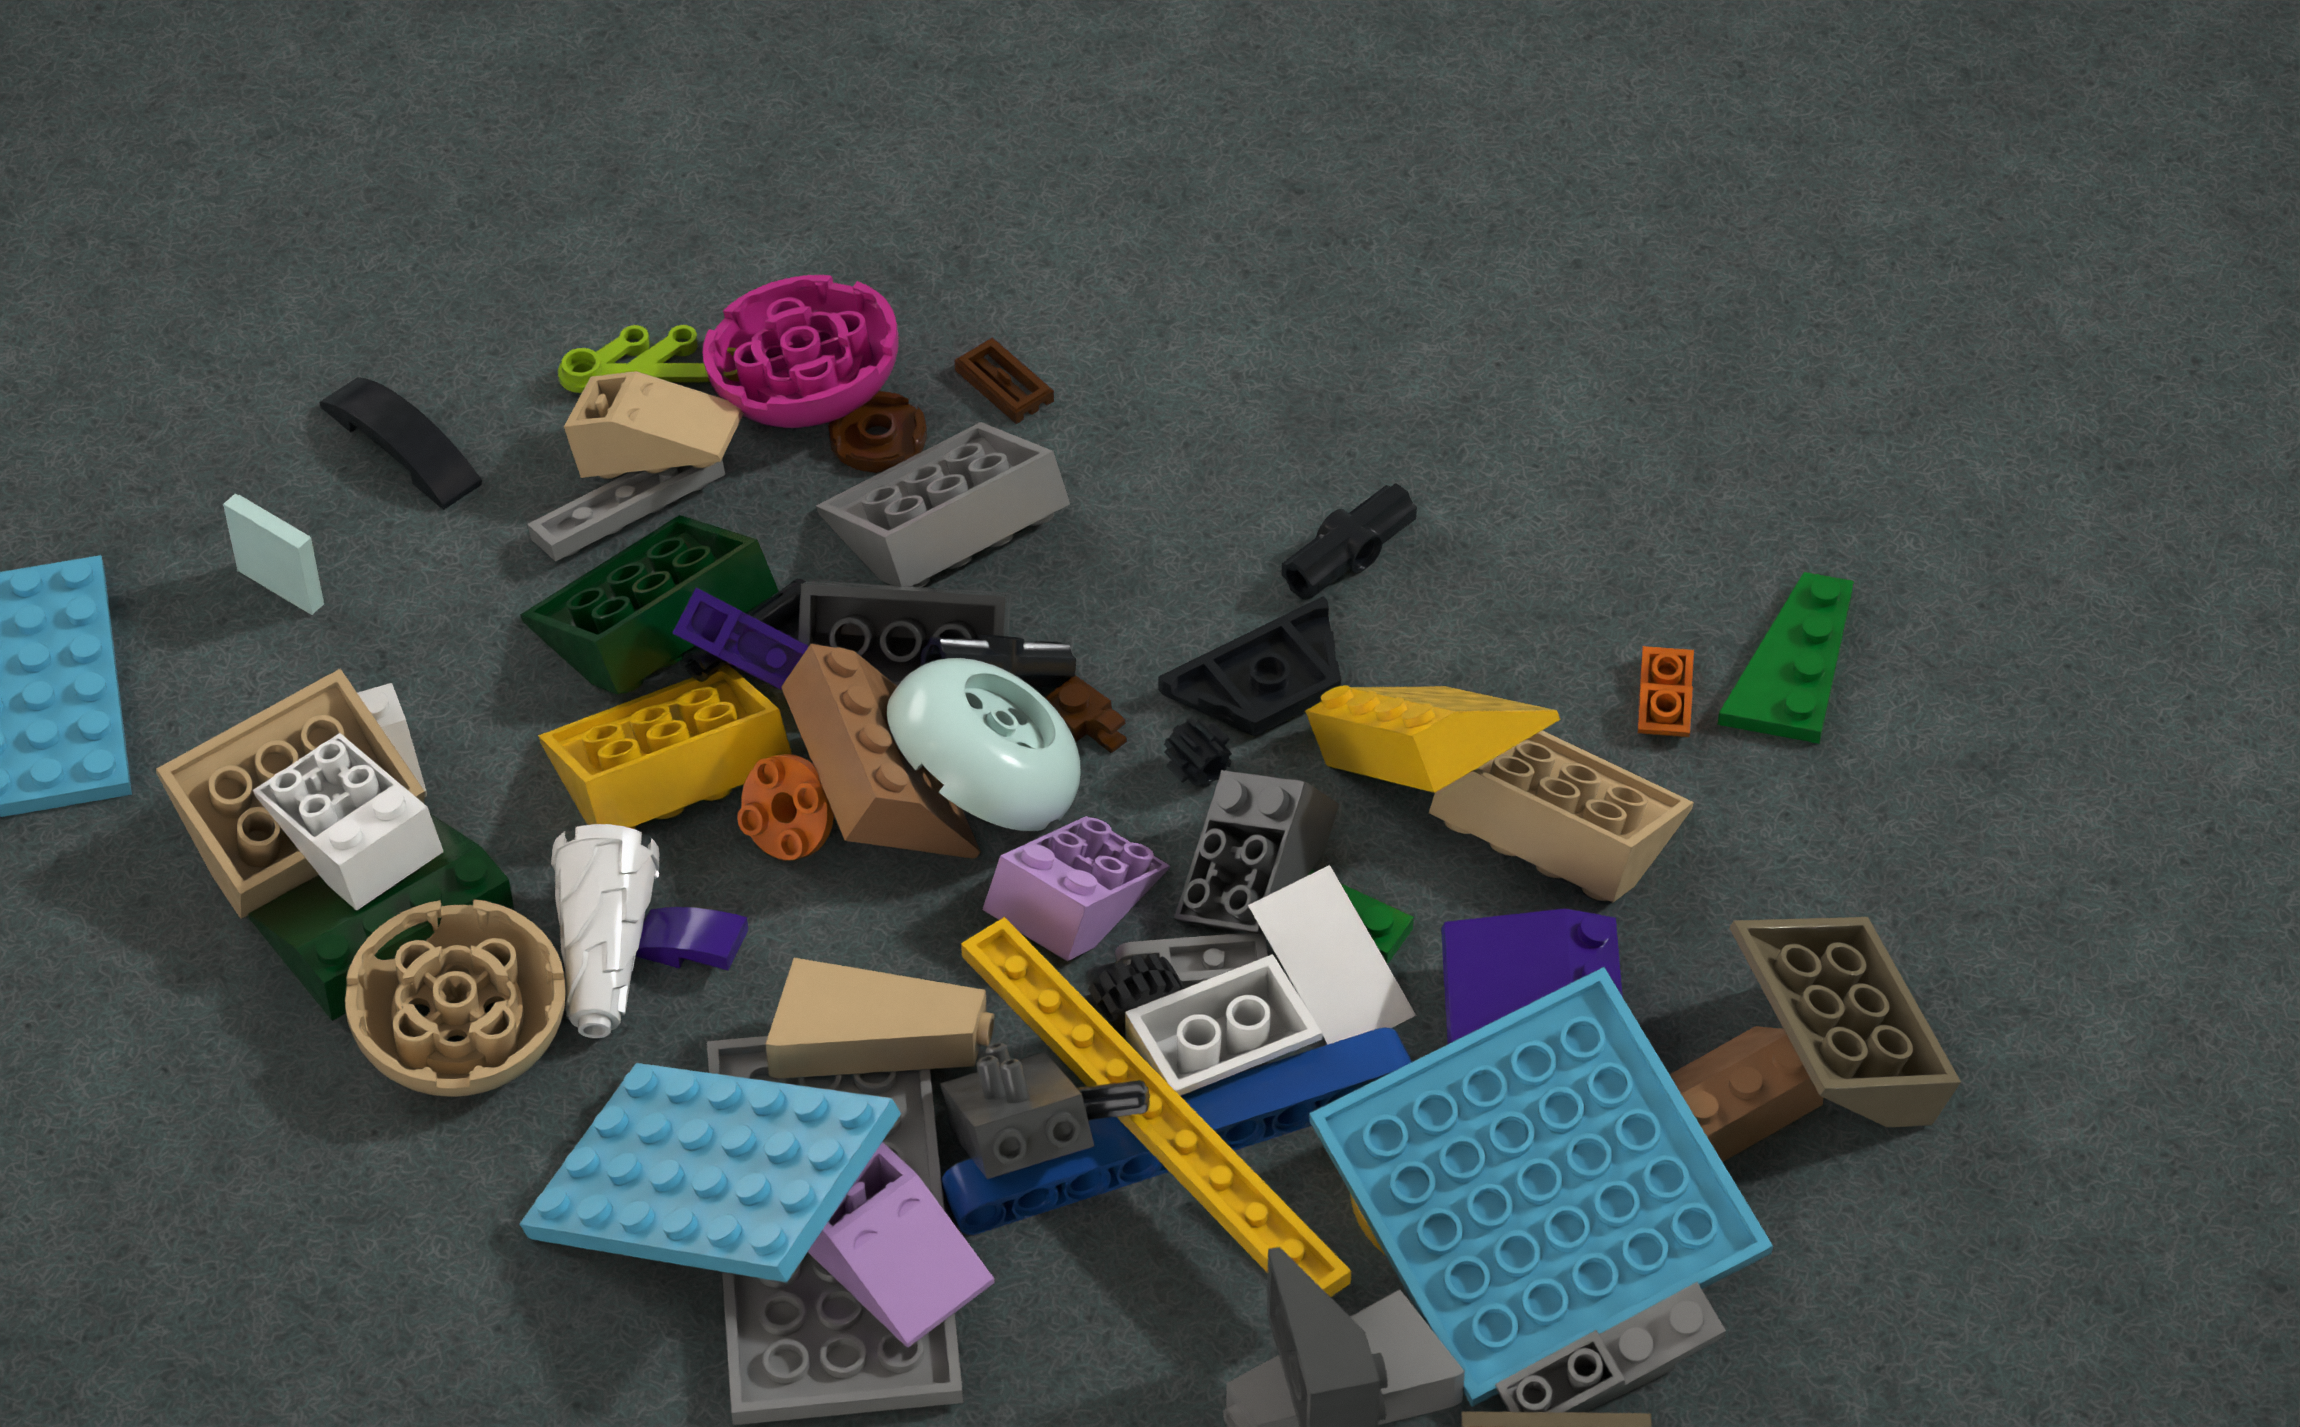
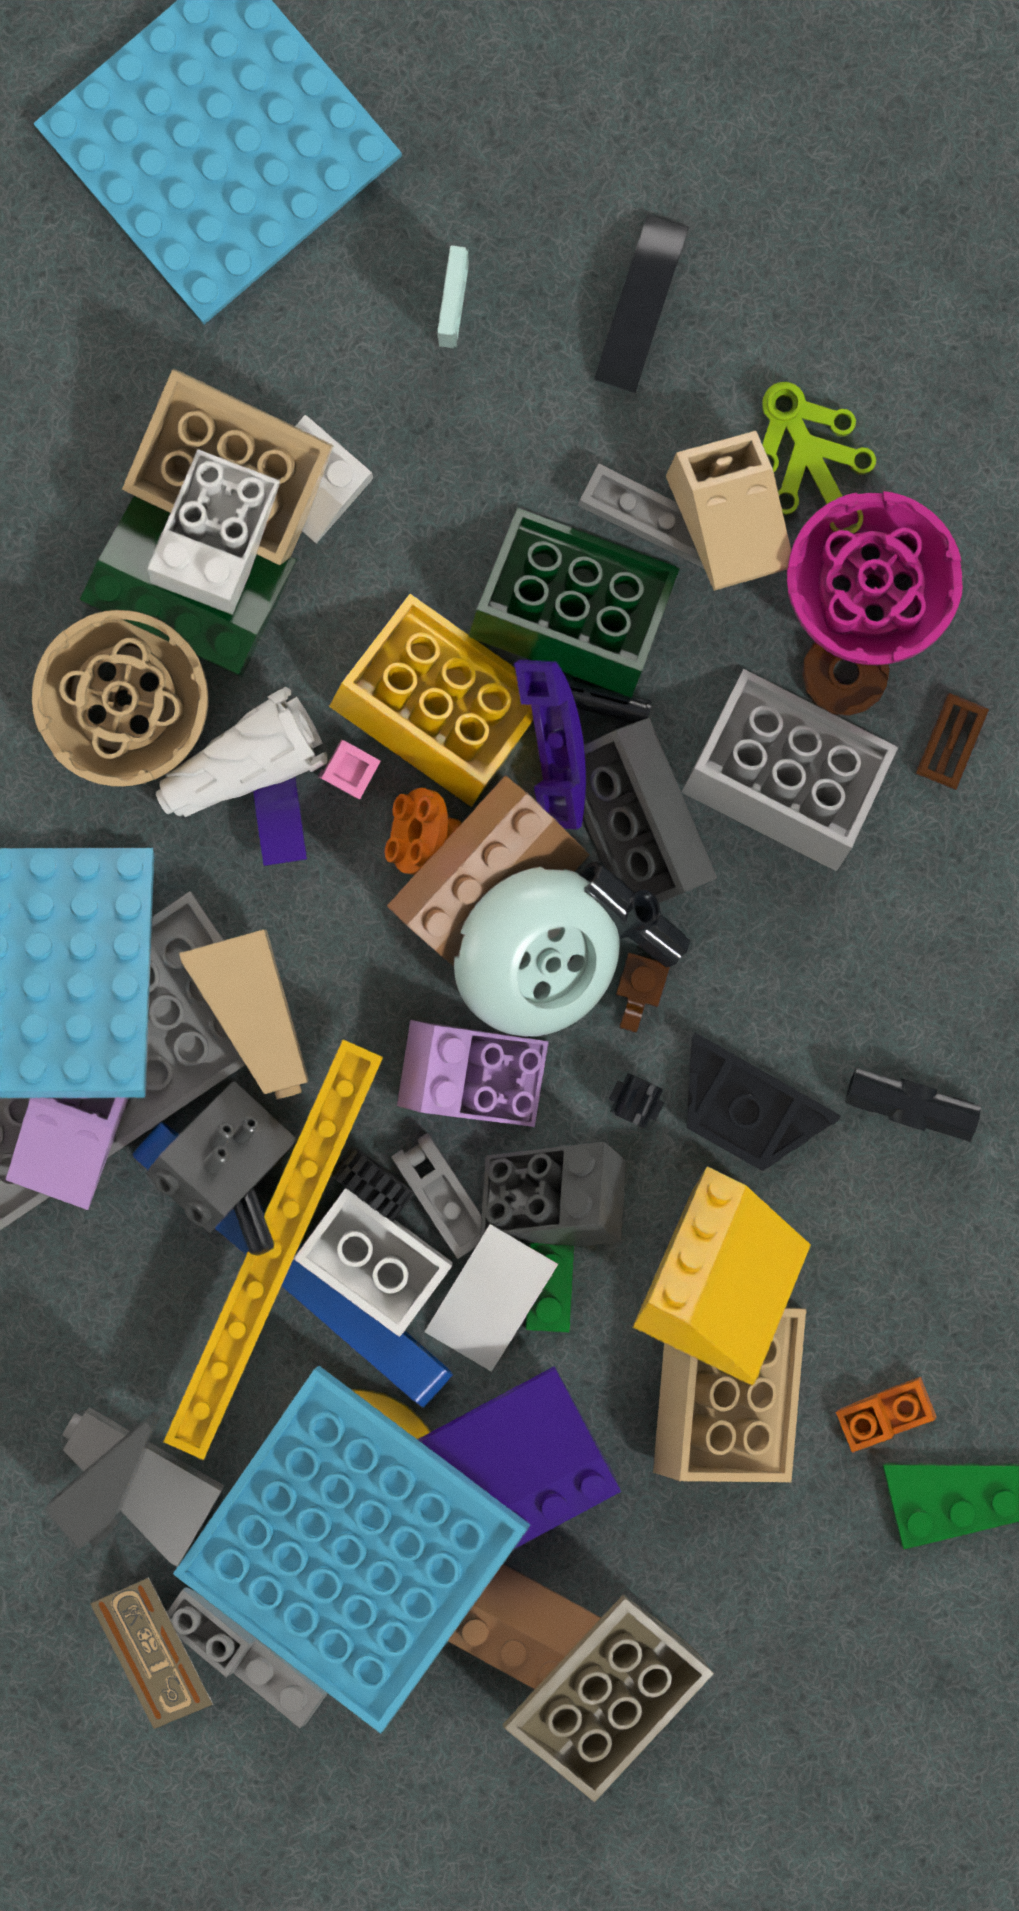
camera: 60 degrees right, 40 degrees up
(684, 841) = (349, 769): none -> bright pink panel

